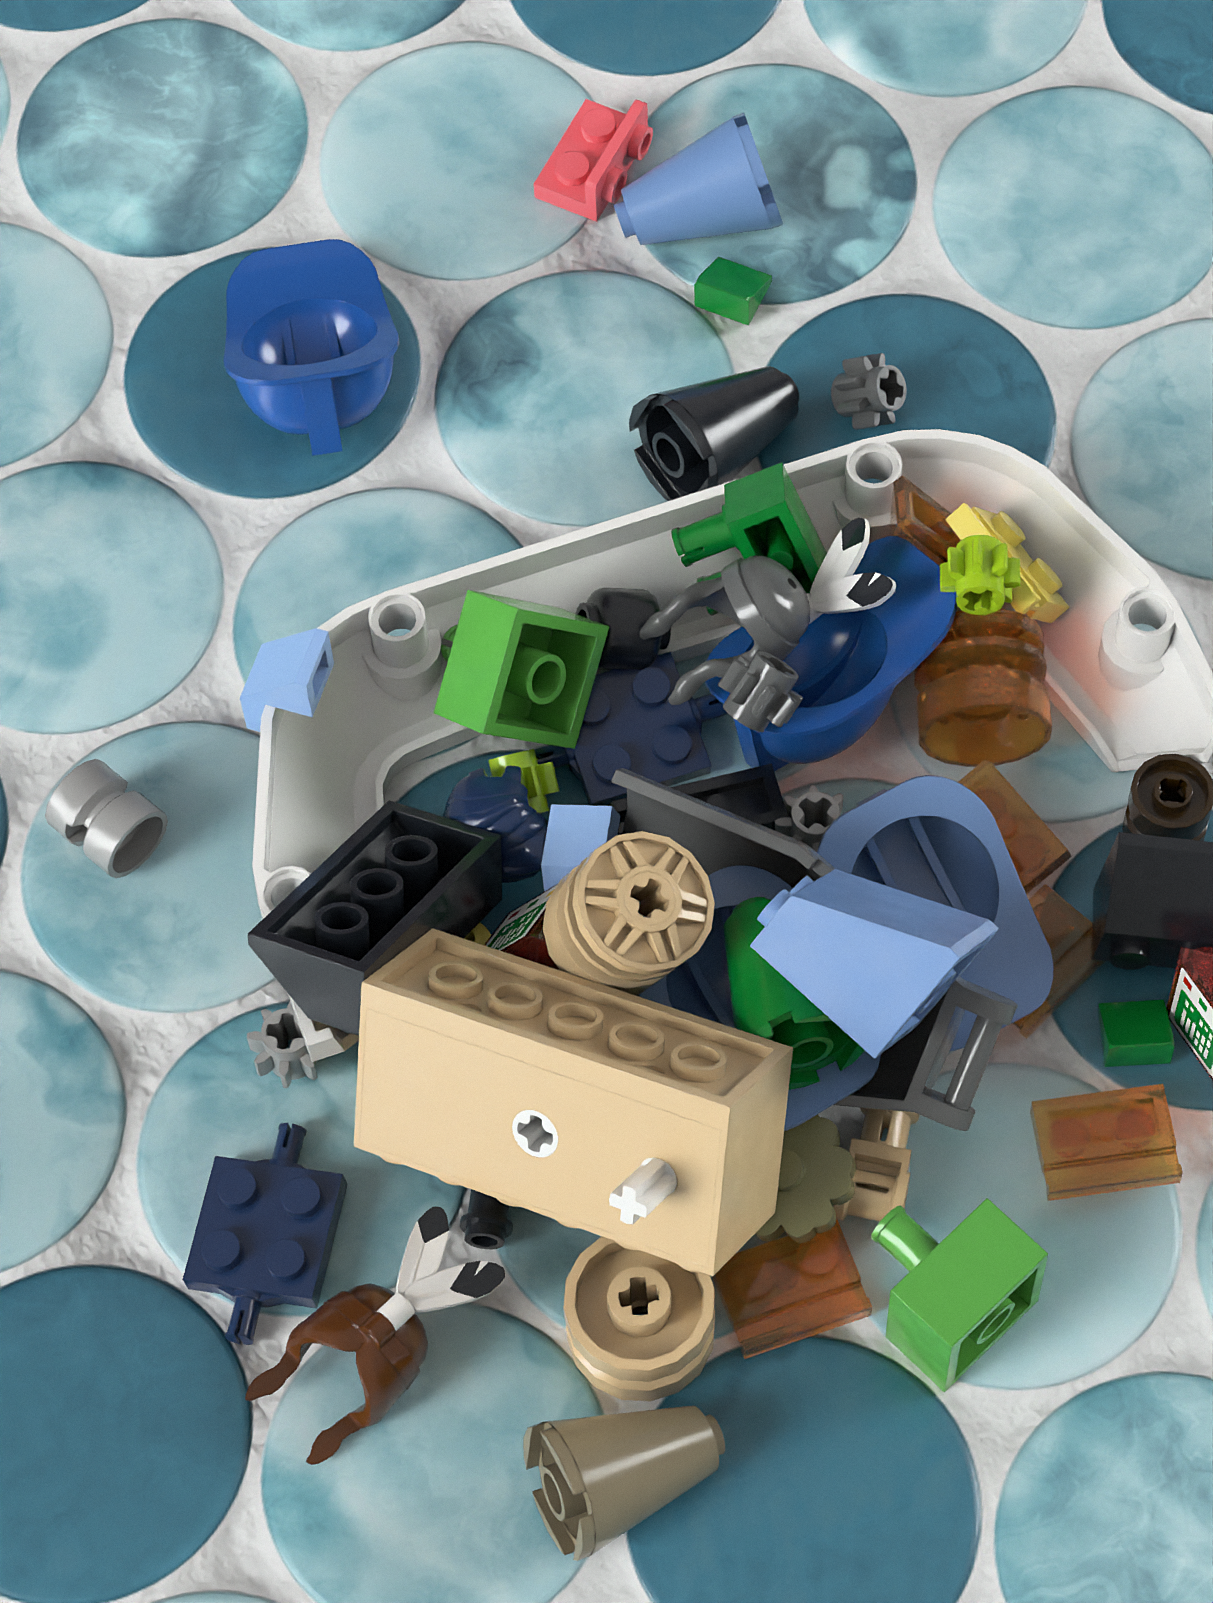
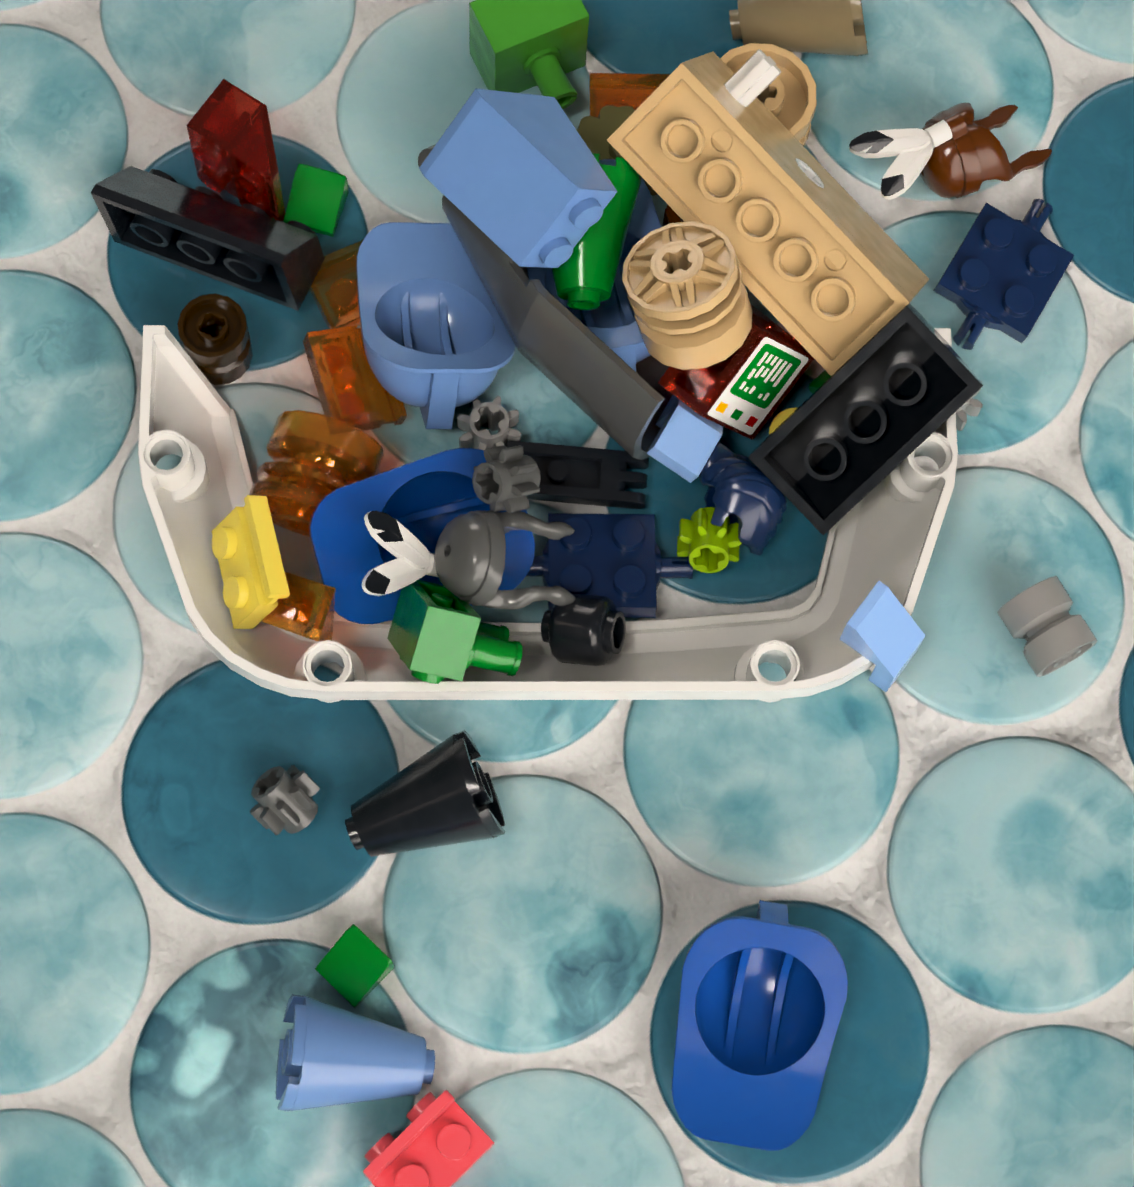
camera: 170 degrees left, 10 degrees up
(520, 669) = (688, 595): bright green brick -> none
(980, 574) = (289, 514): lime gear -> none
(1105, 1142) = (376, 126): clear orange plate -> none

